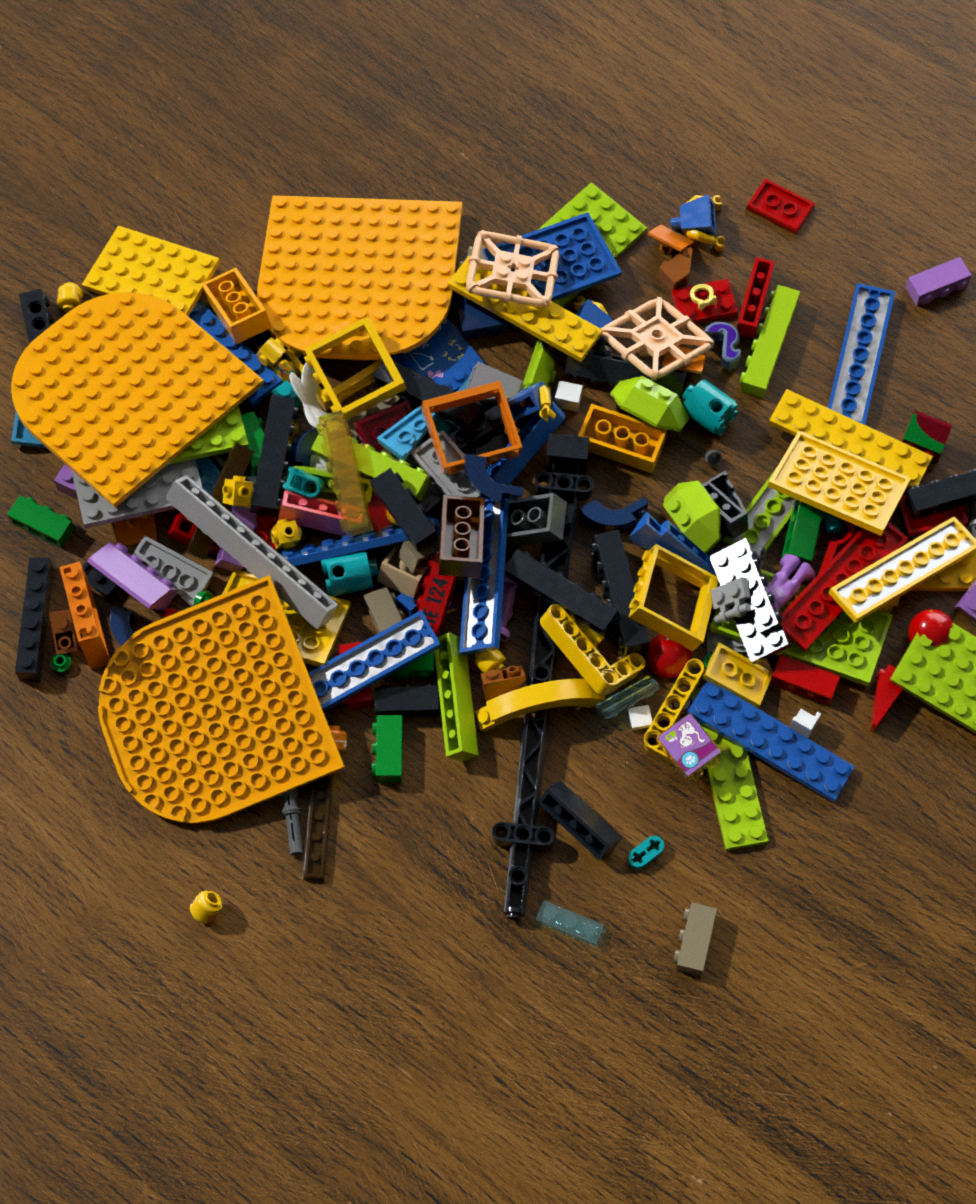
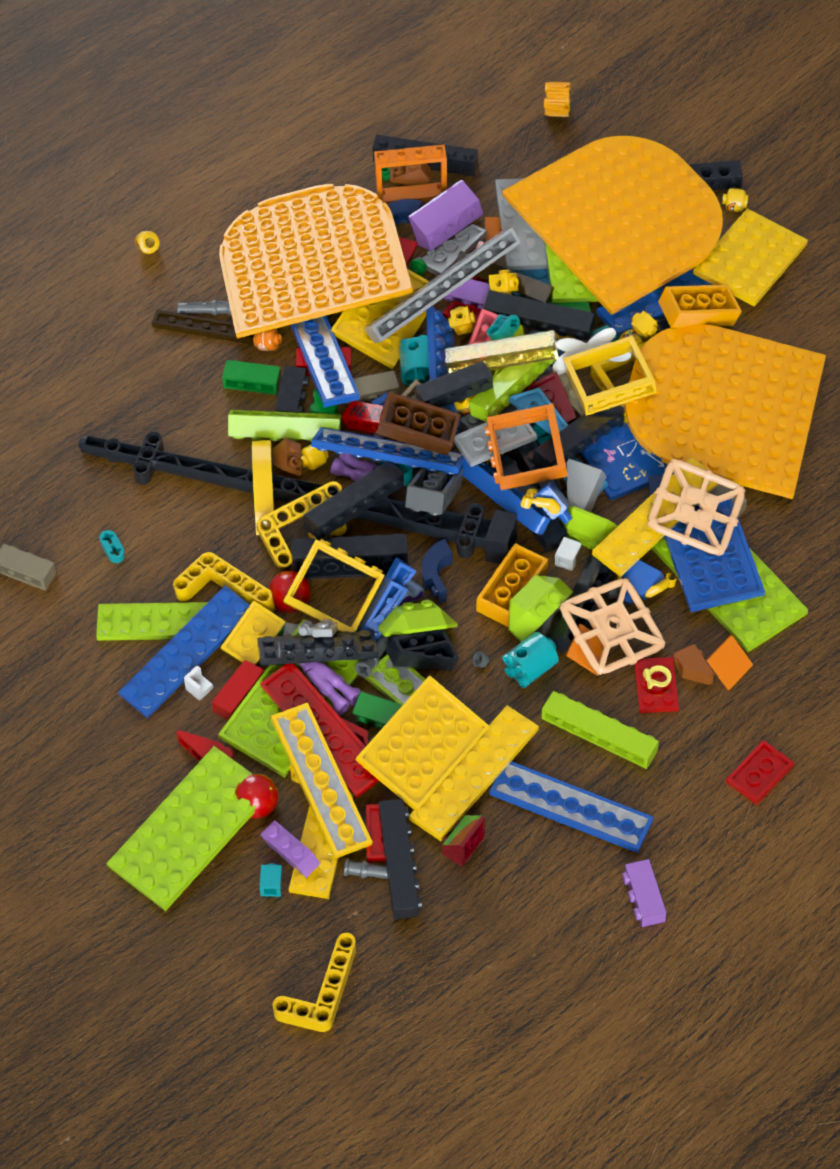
camera: 100 degrees right, 10 degrees down
(41, 521) = (517, 162): green brick -> none
(482, 483) = (466, 443): dark blue arch -> none
(569, 923) = (66, 484): clear light blue plate -> none
(579, 820) = (150, 498): black brick -> none
(627, 697) = (255, 552): clear light blue plate -> none
(640, 717) = (237, 560): white tile -> none
(689, 748) = (188, 577): brick -> none
(699, 221) = (748, 689): blue torso -> none
(730, 337) = (603, 694): sand blue animal -> none
(755, 297) = (649, 721): red brick -> none

